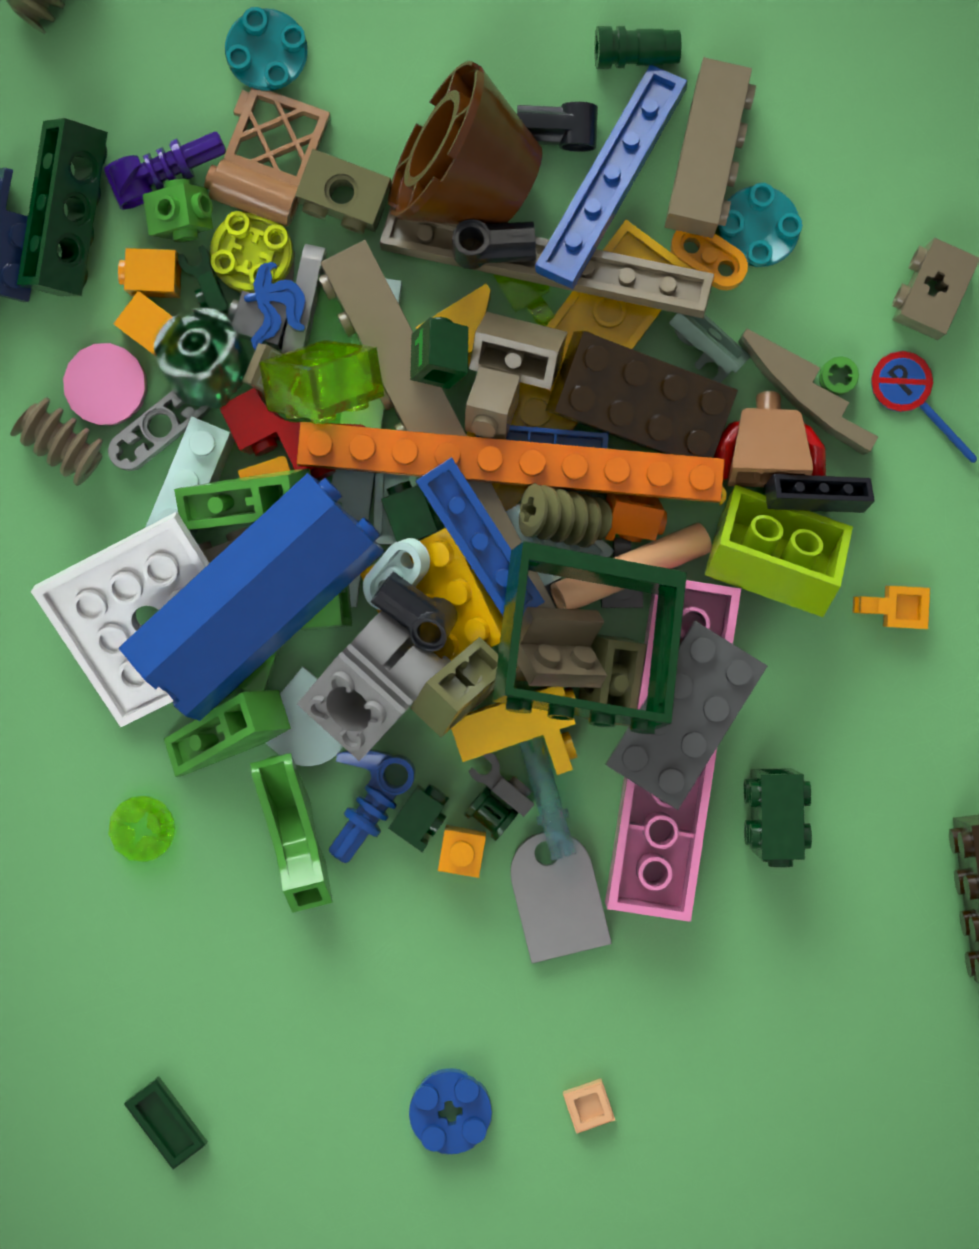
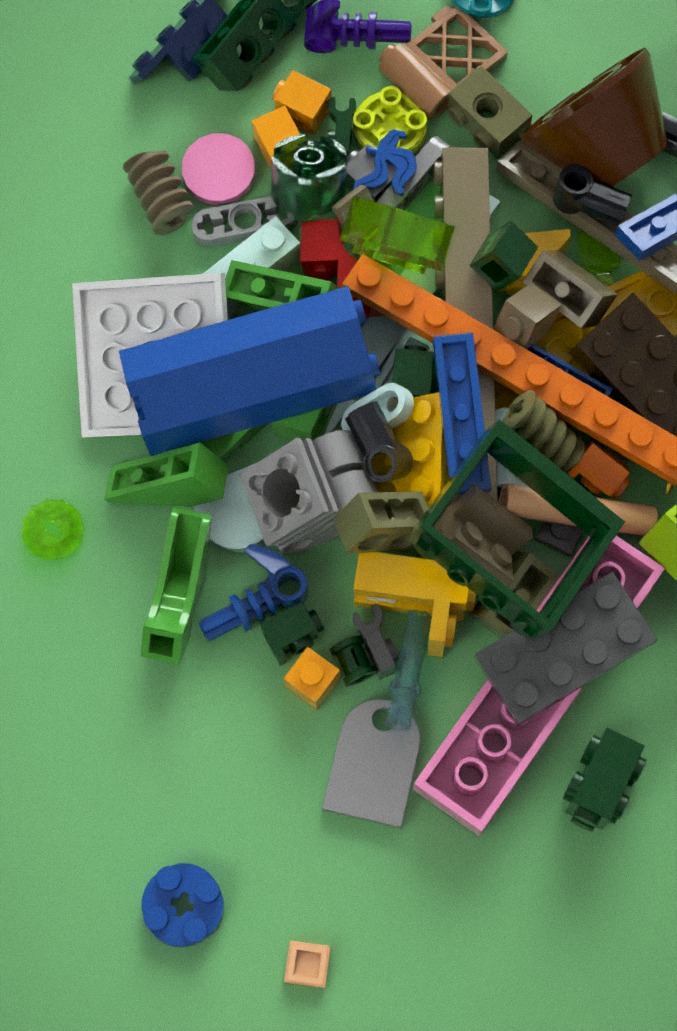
camera: 30 degrees right, 15 degrees down
(178, 211) = (348, 65): bright green brick -> none

